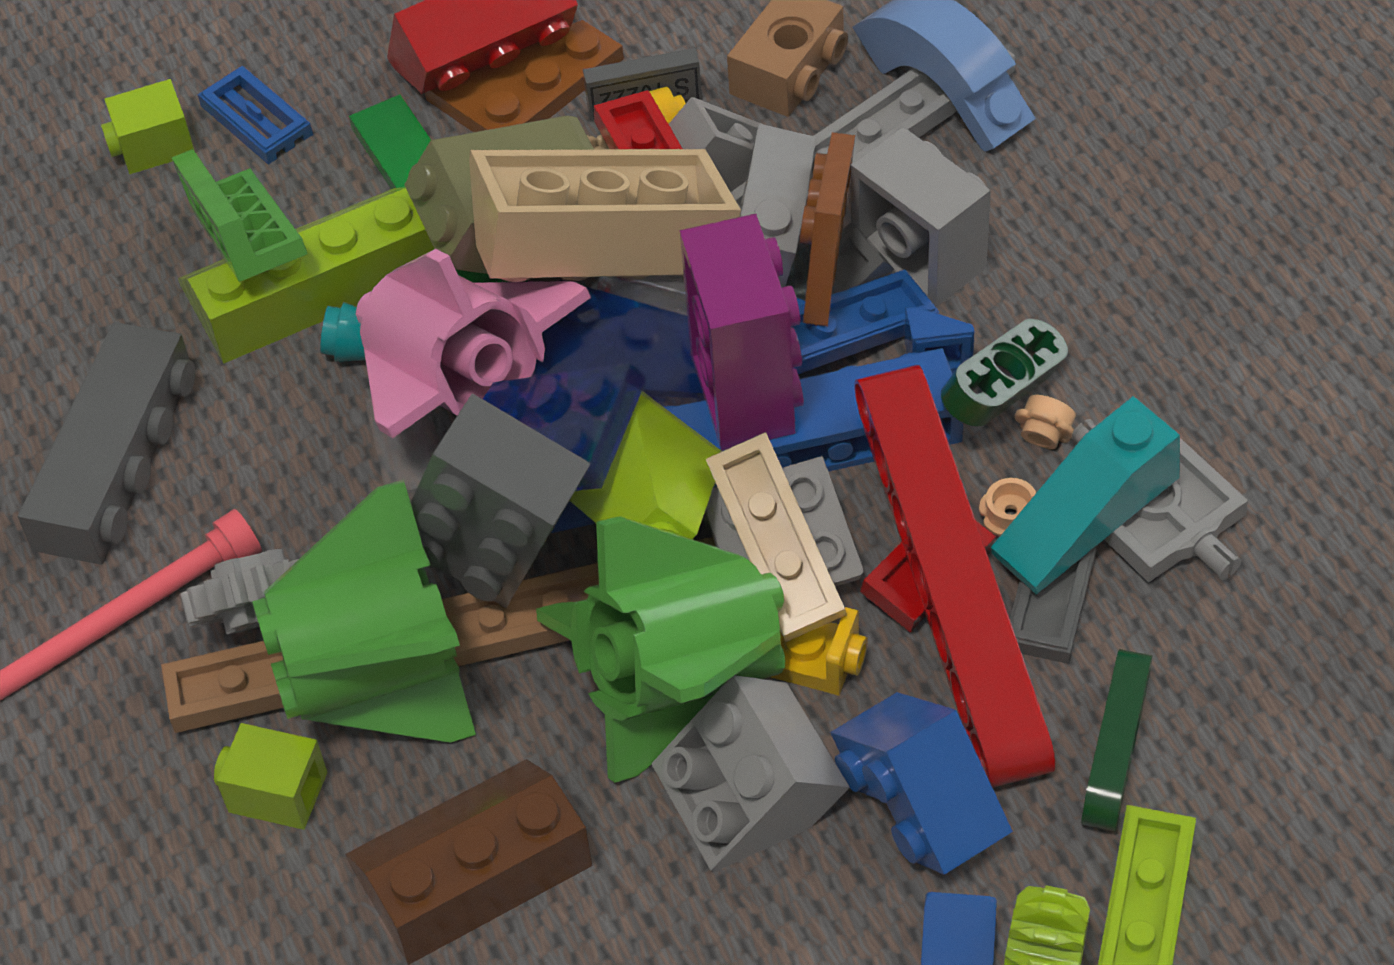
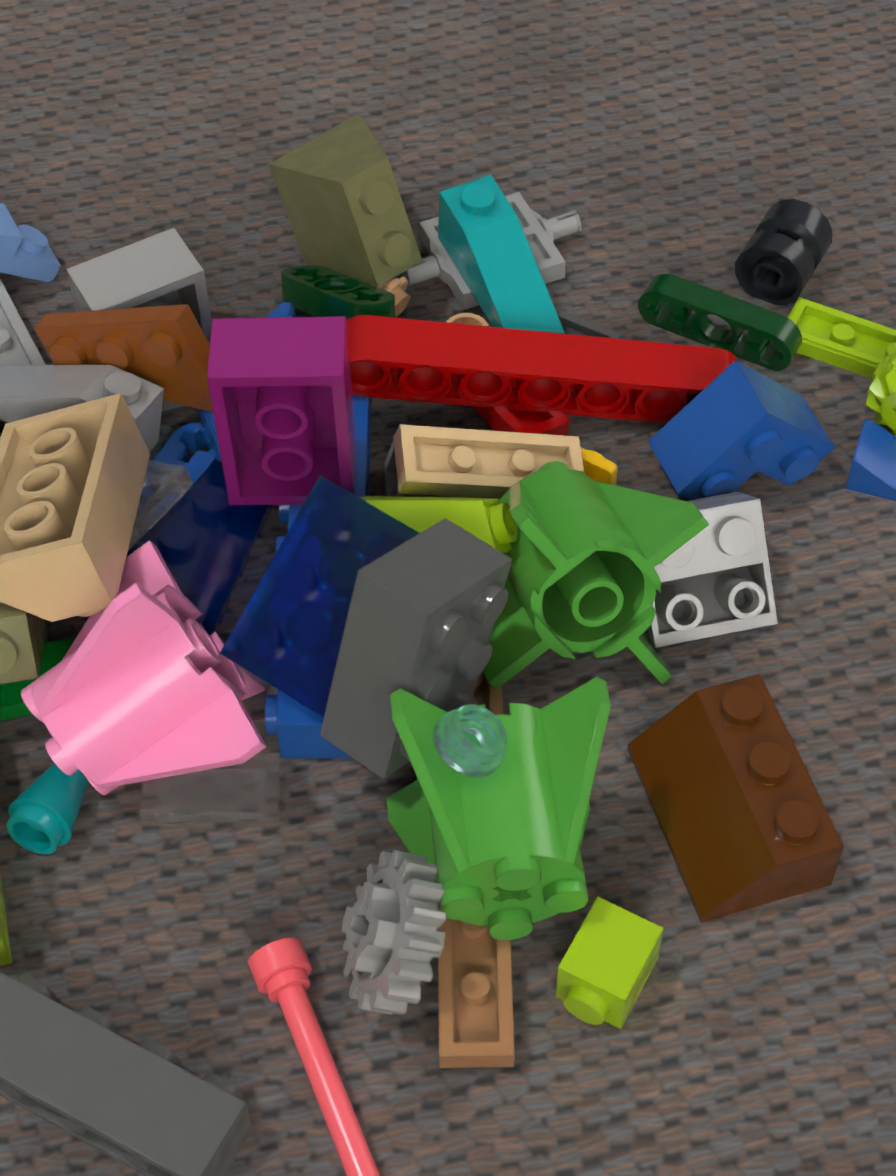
camera: 80 degrees left, 0 degrees up
(374, 531) = (471, 740): none -> clear light blue plate
(1126, 333) = (347, 204): none -> olive slope
(1272, 787) = (783, 252): none -> black wheel

